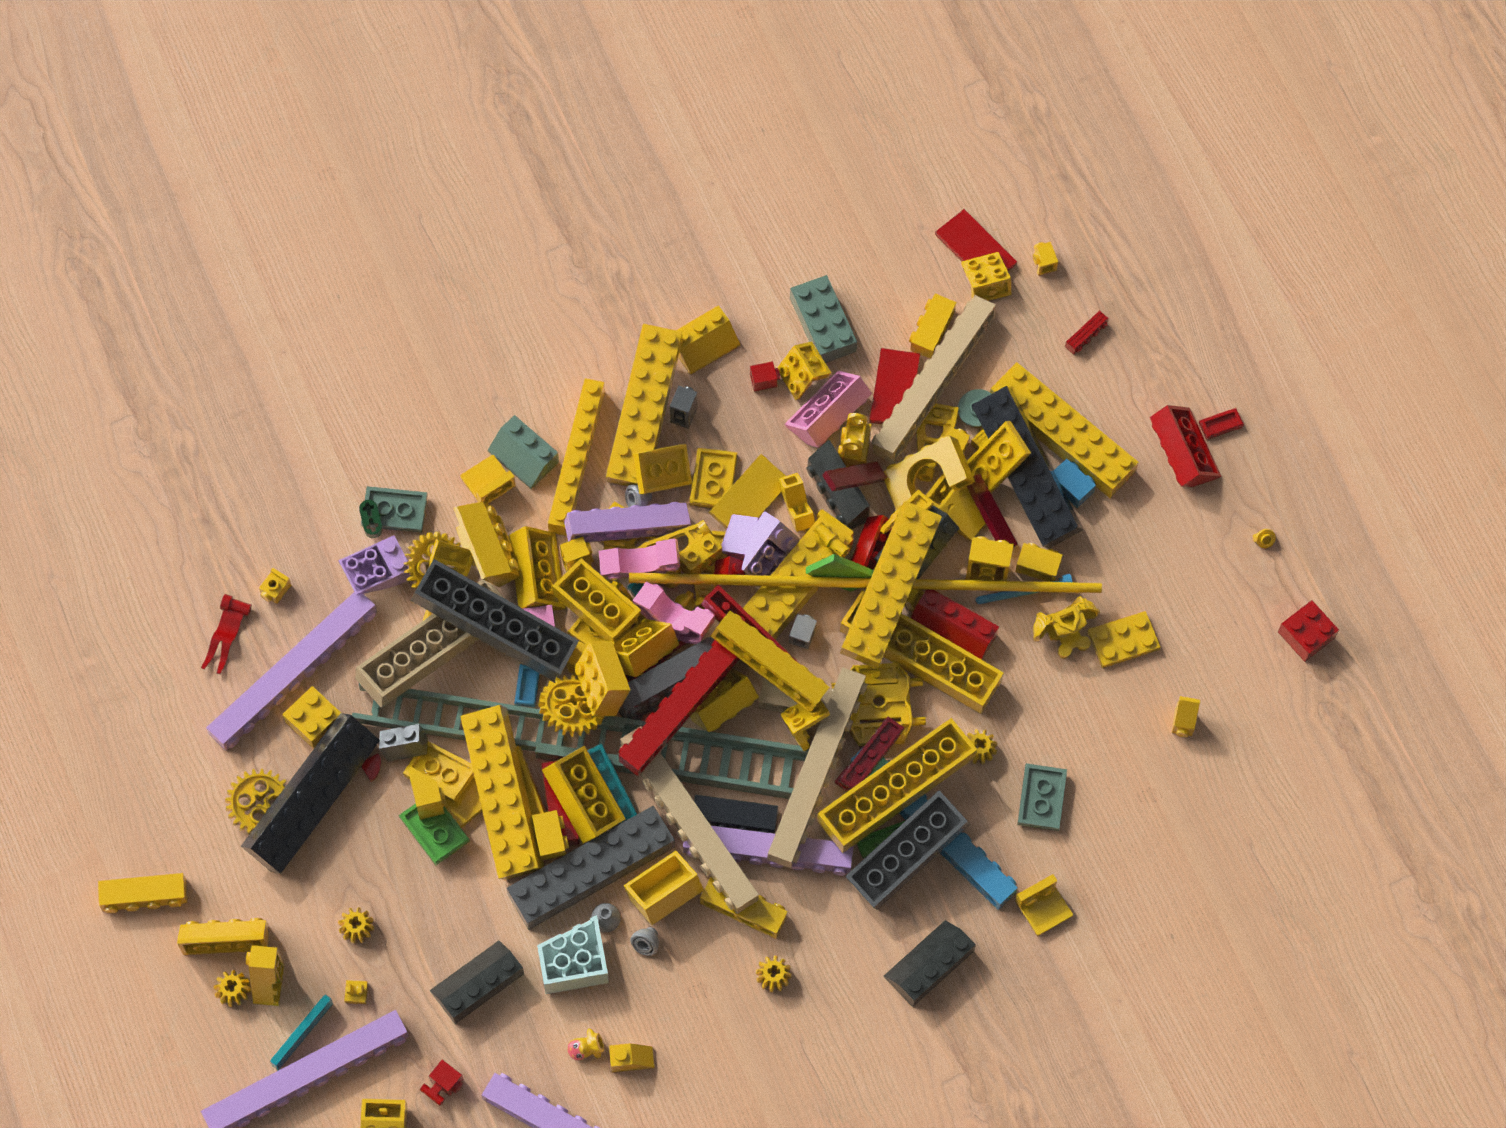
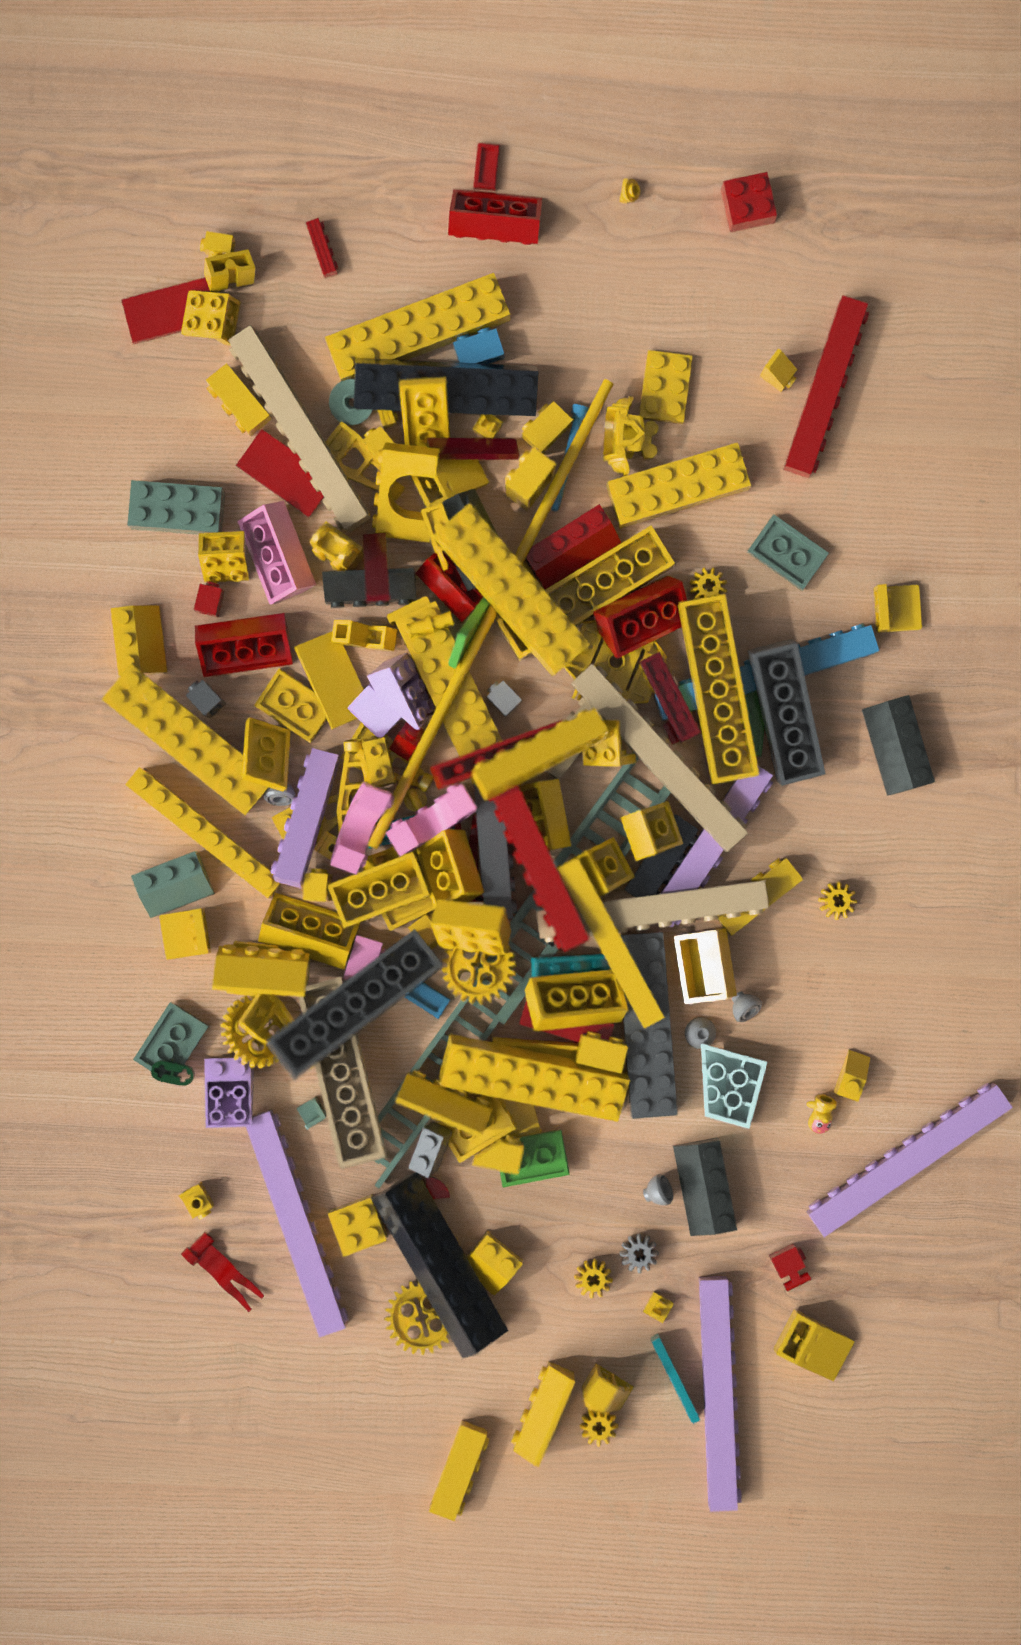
camera: 65 degrees left, 20 degrees up
(331, 839) = (493, 1263): none -> yellow slope
(386, 638) = (312, 1112): none -> sand green panel
(389, 947) = (647, 1251): none -> light grey gear
(447, 729) = (444, 1104): none -> yellow slope
(456, 944) = (659, 1190): none -> light grey brick
(644, 794) = (610, 942): none -> yellow tile
(702, 764) = (605, 866): none -> yellow slope
(741, 417) = (243, 645): none -> red slope
(754, 789) = (651, 830): none -> yellow slope
(924, 699) = (641, 616): none -> red slope
(1016, 519) = (487, 426): none -> yellow tile
(1030, 271) = (229, 268): none -> yellow brick
(1048, 684) = (678, 485): none -> yellow brick
(1194, 762) = (825, 387): none -> red brick

